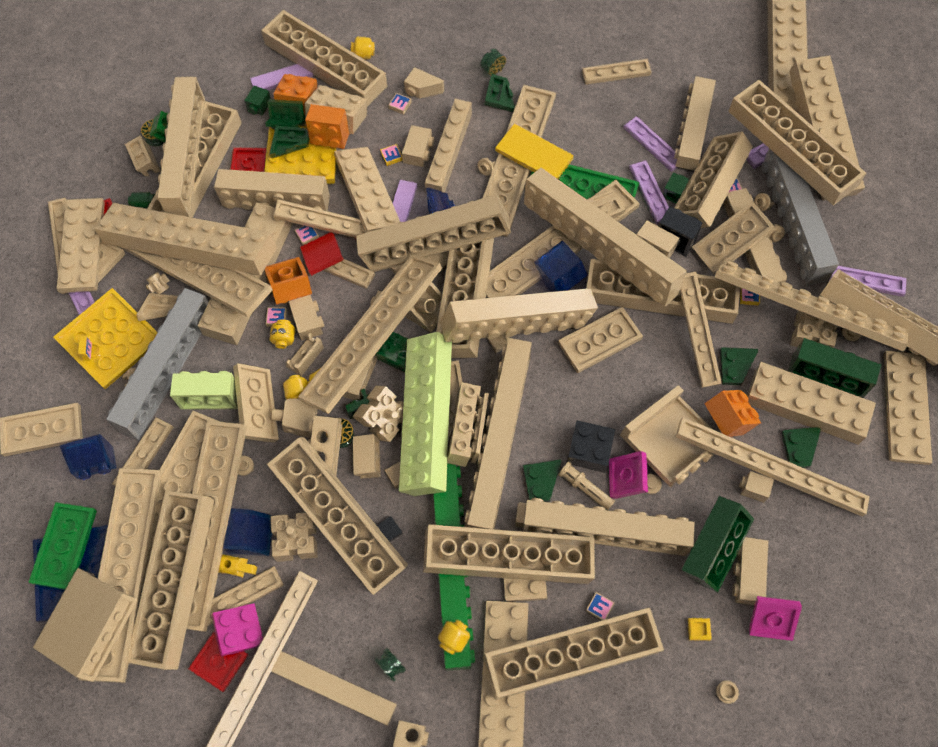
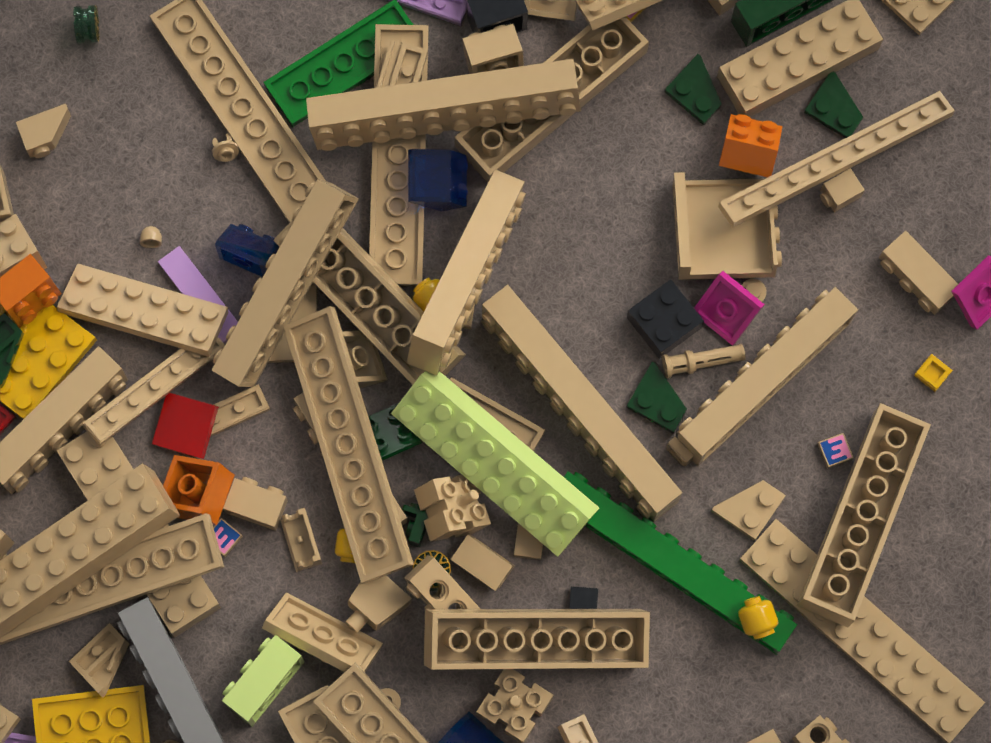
camera: 55 degrees left, 10 degrees up
(157, 283) = (65, 642): tan gear -> none
(282, 334) = (256, 546): yellow head -> none
(294, 386) = (339, 579): yellow head -> none
(306, 234) = (141, 426): tile -> none
(390, 664) = (730, 704): clear green wheel -> none
(391, 155) = (111, 244): tile -> none
(400, 103) = (44, 177): tile -> none
(409, 168) = (148, 234): none -> tan hinge
(417, 146) = (129, 205): tan brick -> none
(449, 145) = (164, 171): tan brick -> none
(462, 432) = (537, 427): tan brick -> none
(499, 94) = (135, 52): dark green wing -> none
(509, 554) = (717, 497): tan brick -> none
(533, 151) = (258, 82): yellow tile -> none
(600, 339) = (551, 206): tan plate -> none
(699, 331) = (634, 98): tan tile -> none
(718, 543) = (872, 282): dark green brick -> none

